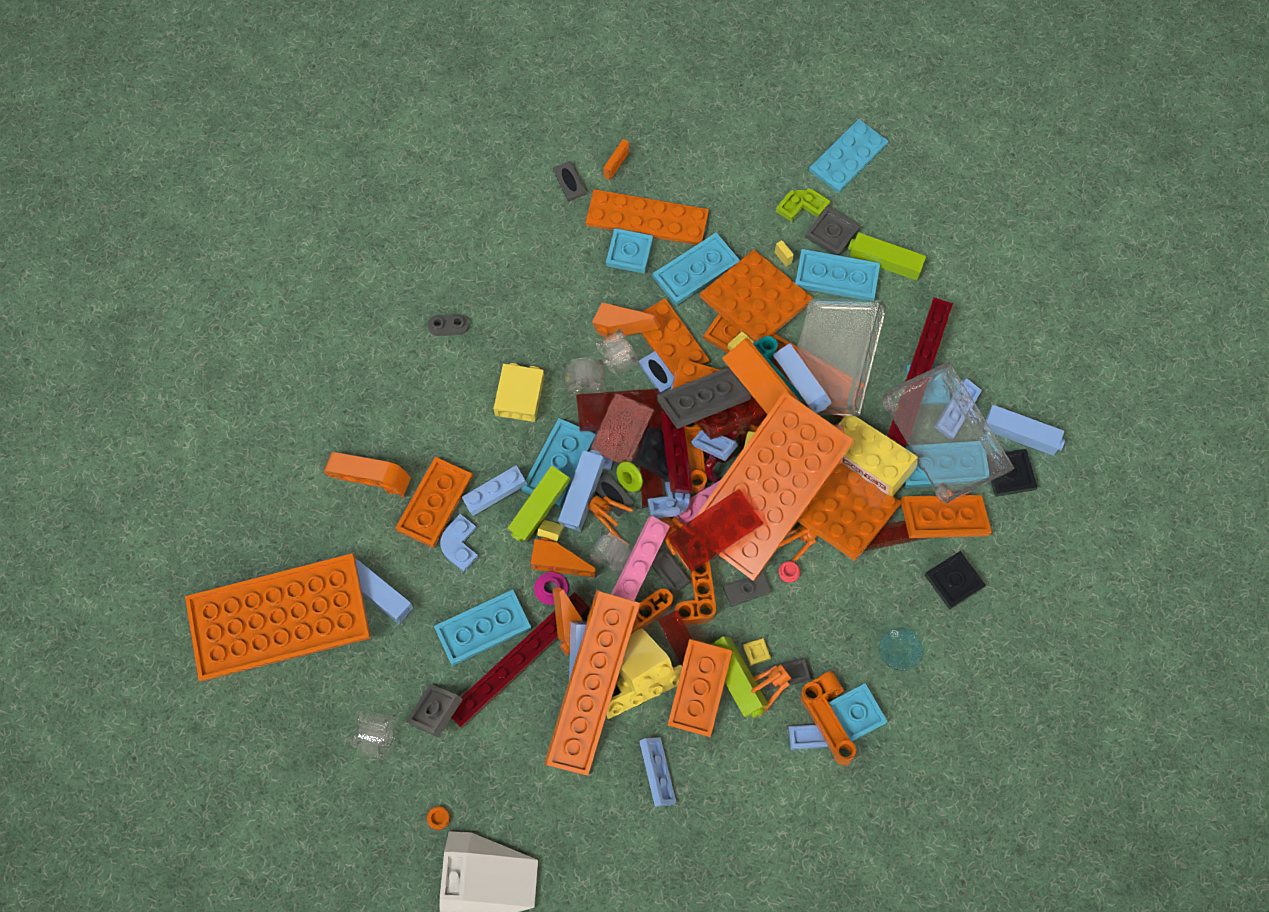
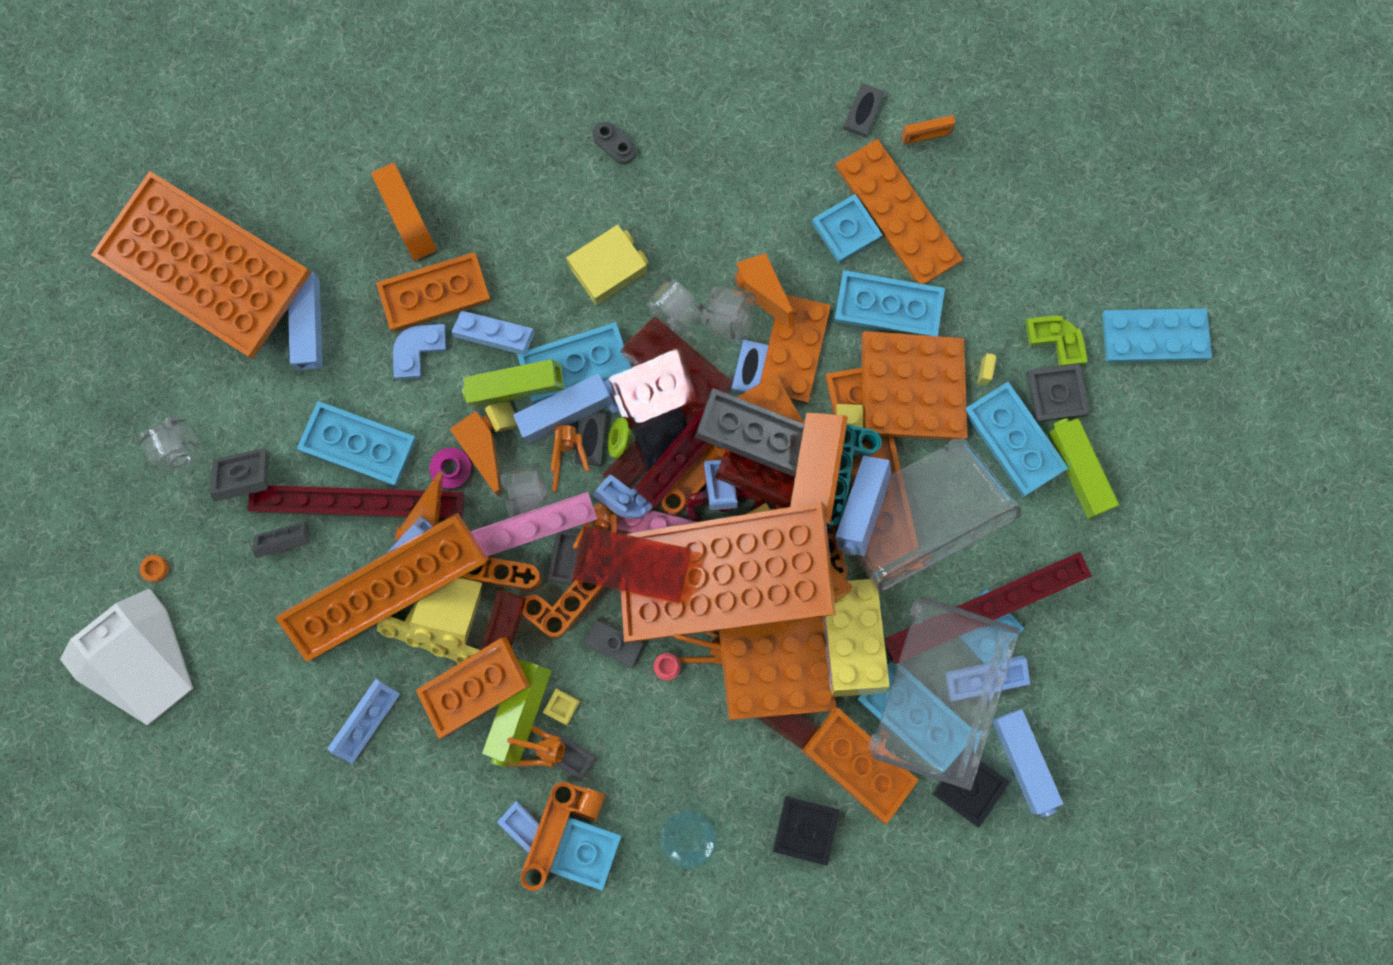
camera: 45 degrees right, 10 degrees up
(498, 723) = (281, 539): none -> dark grey plate

